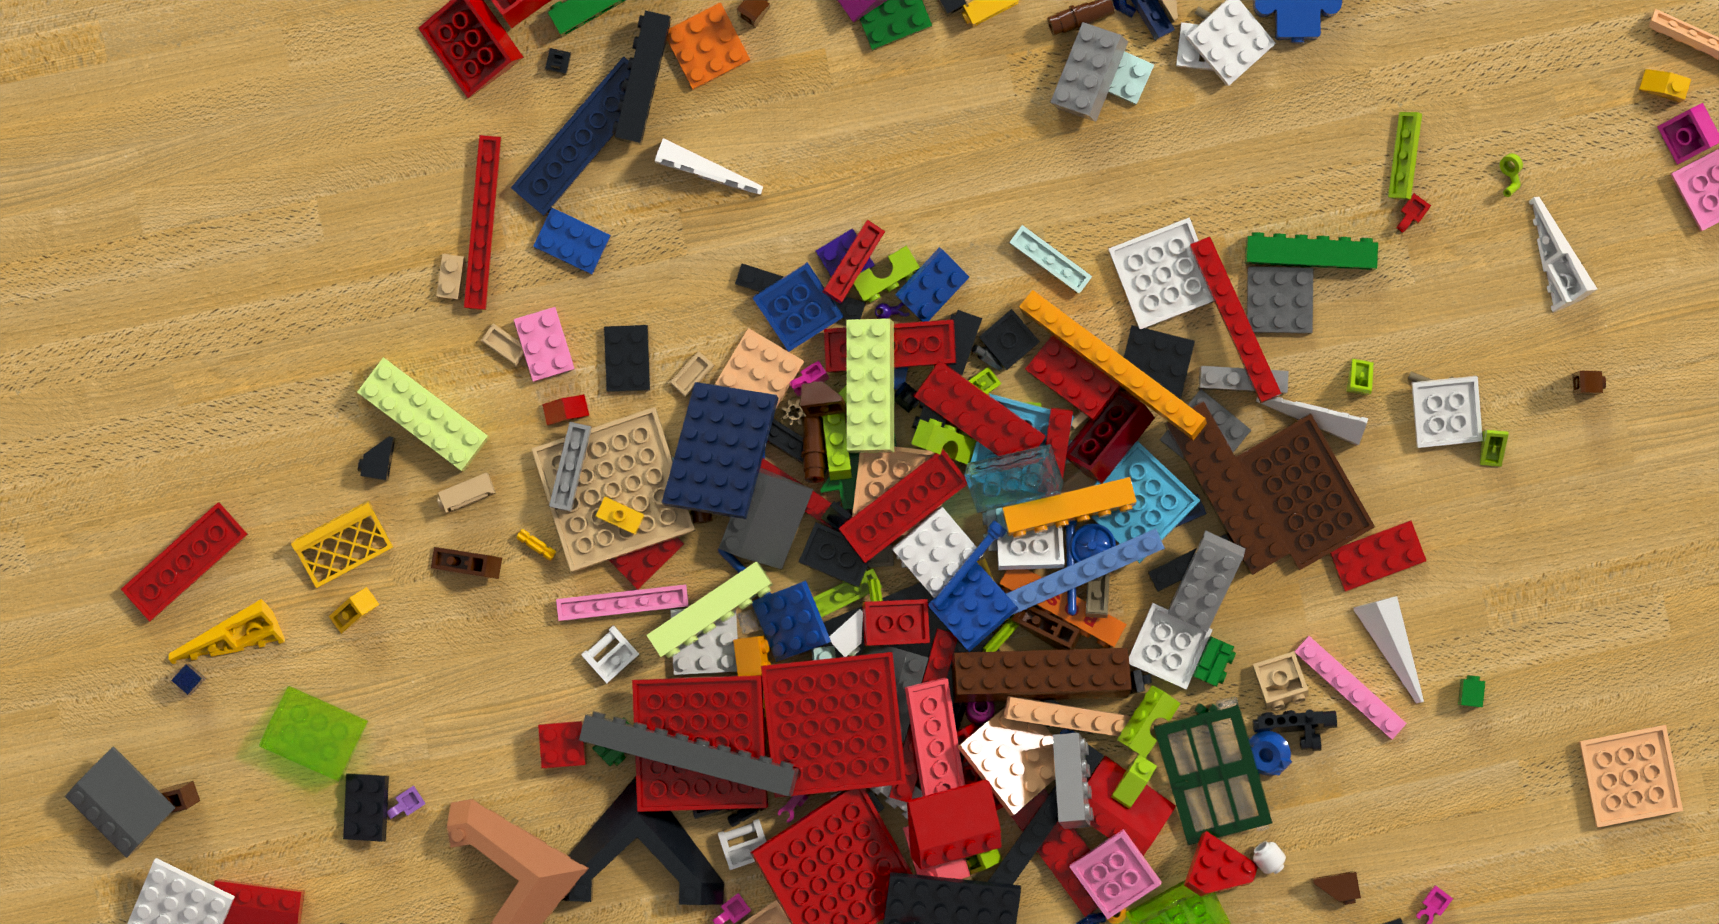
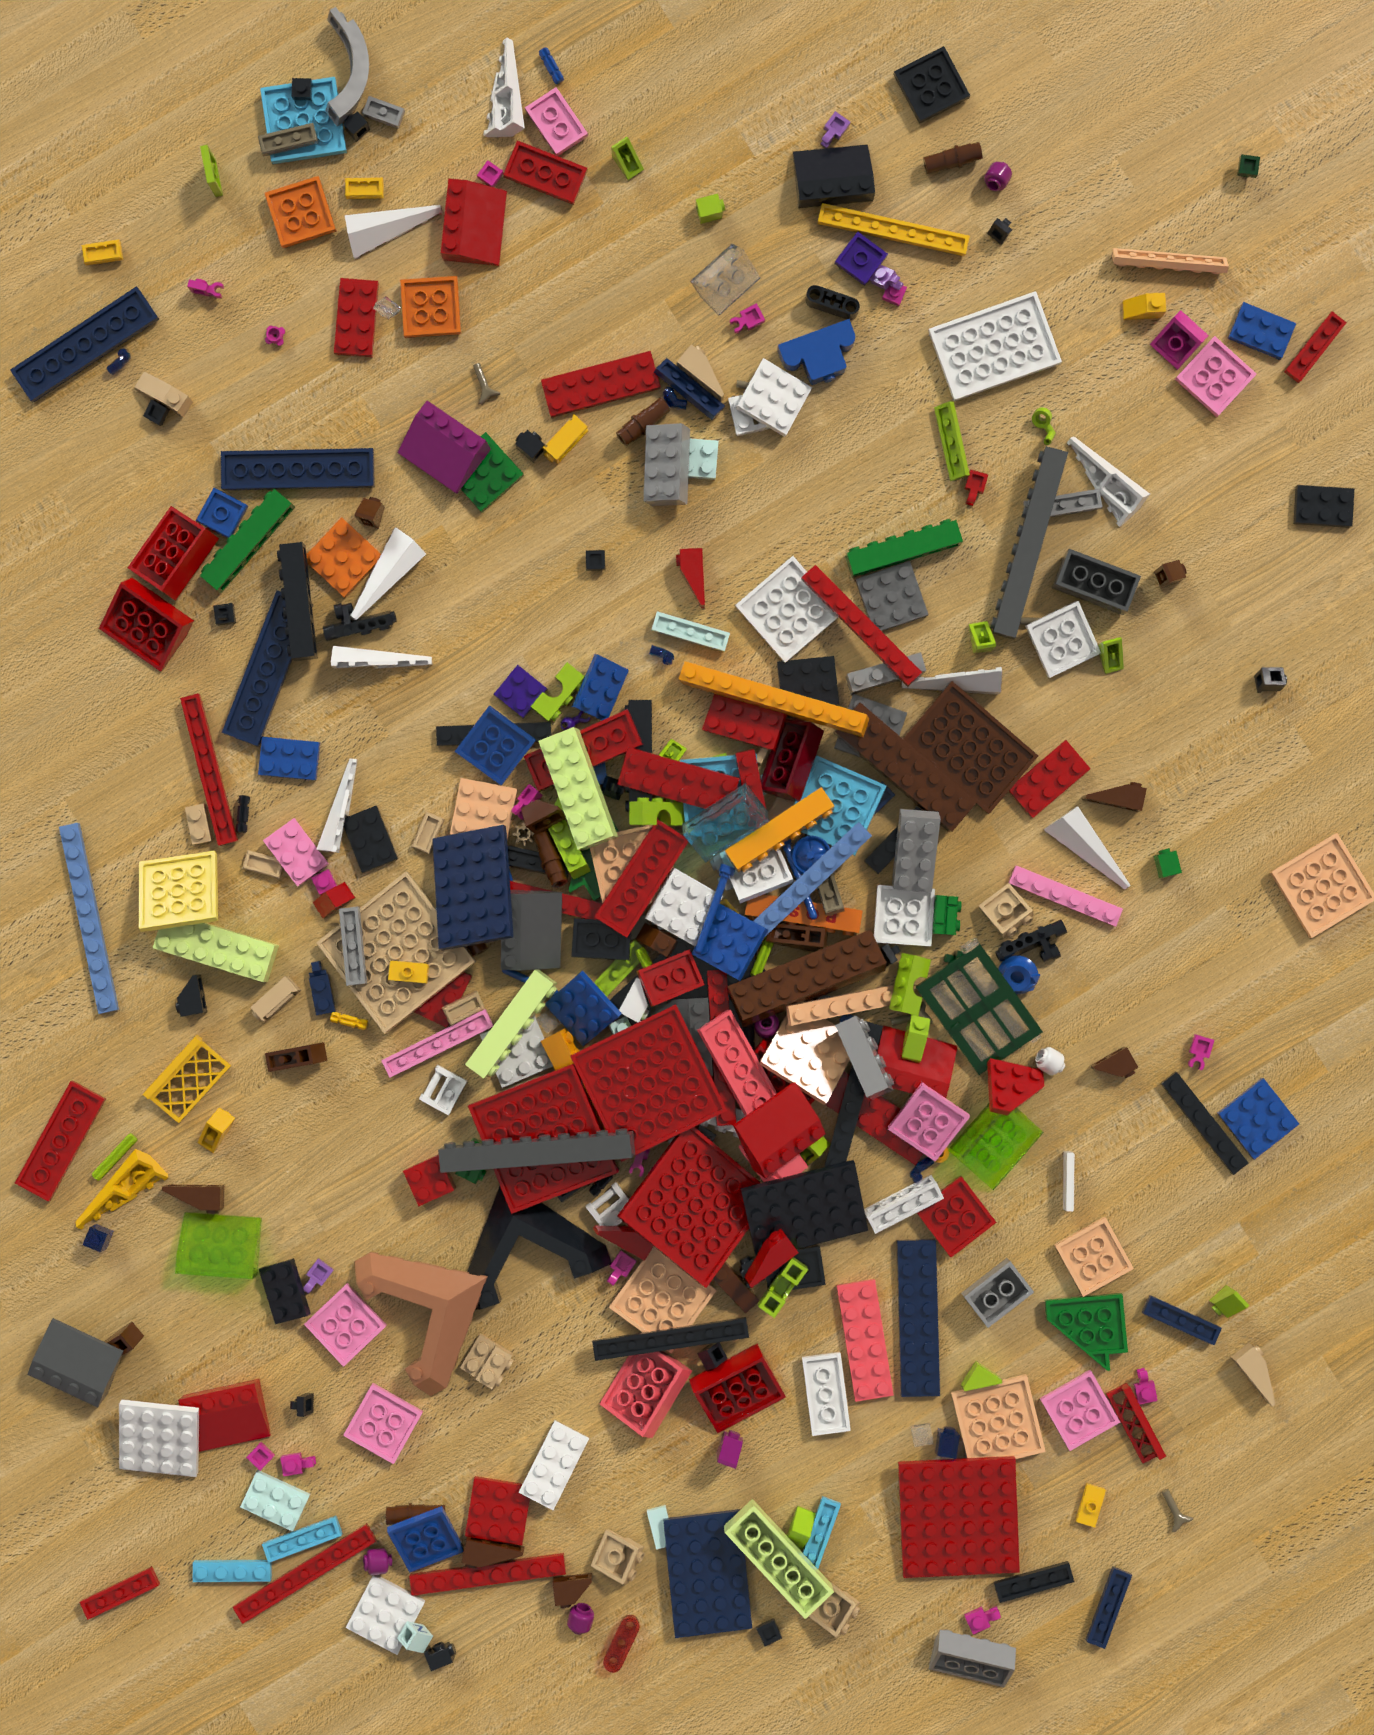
camera: 20 degrees left, 0 degrees up
(235, 599) = (114, 1157): none -> lime axle
(298, 335) = (89, 918): none -> medium blue plate
(312, 674) = (199, 1196): none -> reddish brown slope
(405, 341) = (178, 891): none -> light yellow plate
(417, 866) = (345, 1324): none -> bright pink plate
(501, 282) = (242, 814): none -> black axle
(518, 501) = (321, 989): none -> dark blue hinge
(562, 386) = (324, 881): none -> dark pink plate
(594, 333) = (332, 833): none -> white wedge
(663, 574) = (463, 1008): none -> tan tile
(700, 126) = (362, 625): none -> black piece
(750, 882) = (626, 1239): none -> red slope
(761, 71) = (395, 561): none -> white wedge
(836, 515) = (588, 907): black tile -> none
(853, 261) = (527, 691): red plate -> none
(895, 577) = (656, 940): none -> reddish brown slope
(976, 146) = (595, 560): none -> black plate
(986, 355) = (665, 729): dark grey bar -> none
(1009, 339) = (680, 709): black plate -> none
(1012, 271) = (662, 653): none -> clear blue arm
(1076, 193) = (691, 567): none -> red slope
(1129, 756) = (905, 1018): none -> dark tan piece
(1448, 295) = (1030, 542): none -> dark grey brick
(1452, 604) = (1126, 797): none -> reddish brown slope
(1488, 69) = (994, 346): none -> white plate
(1499, 266) = (1075, 503): none -> light grey plate
(1504, 363) = (1096, 582): none -> dark grey brick
(1660, 531) = (1270, 679): none -> black brick

